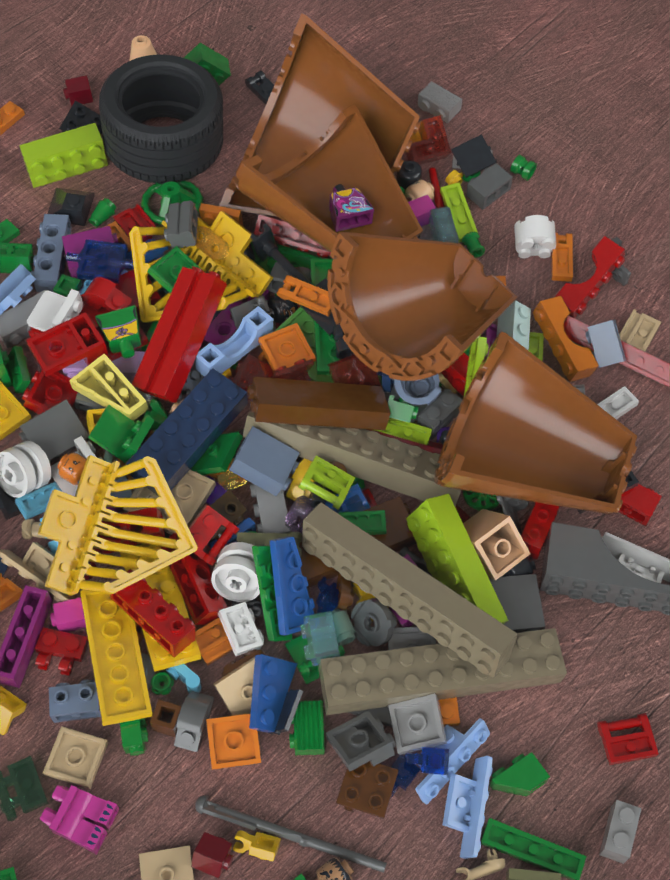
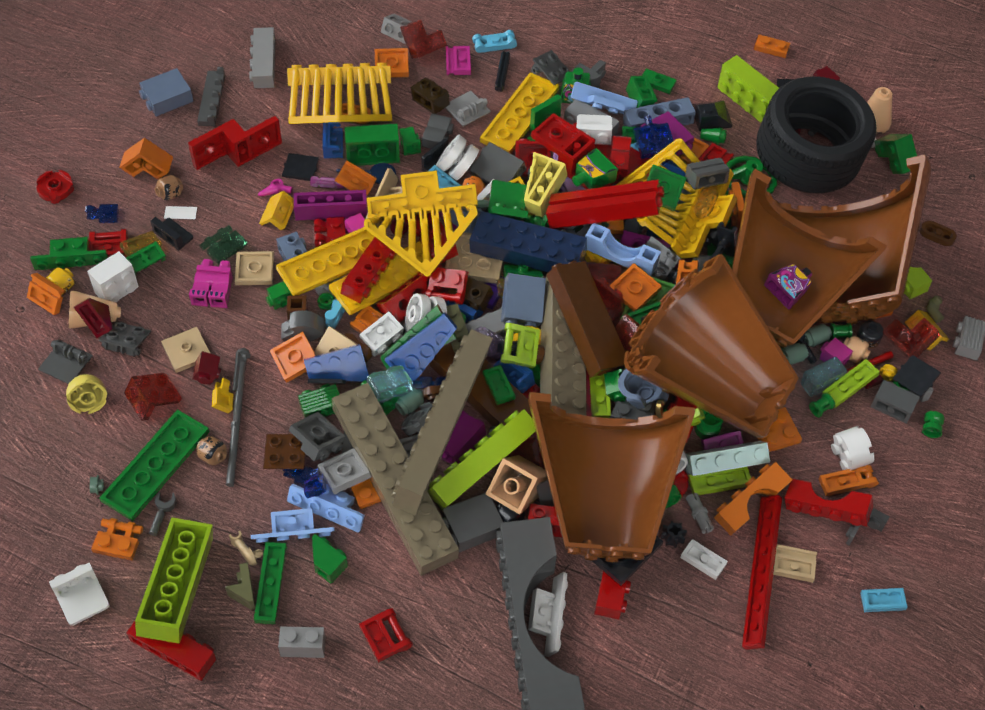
camera: 70 degrees right, 5 degrees down
(606, 343) = (761, 531): brick -> none

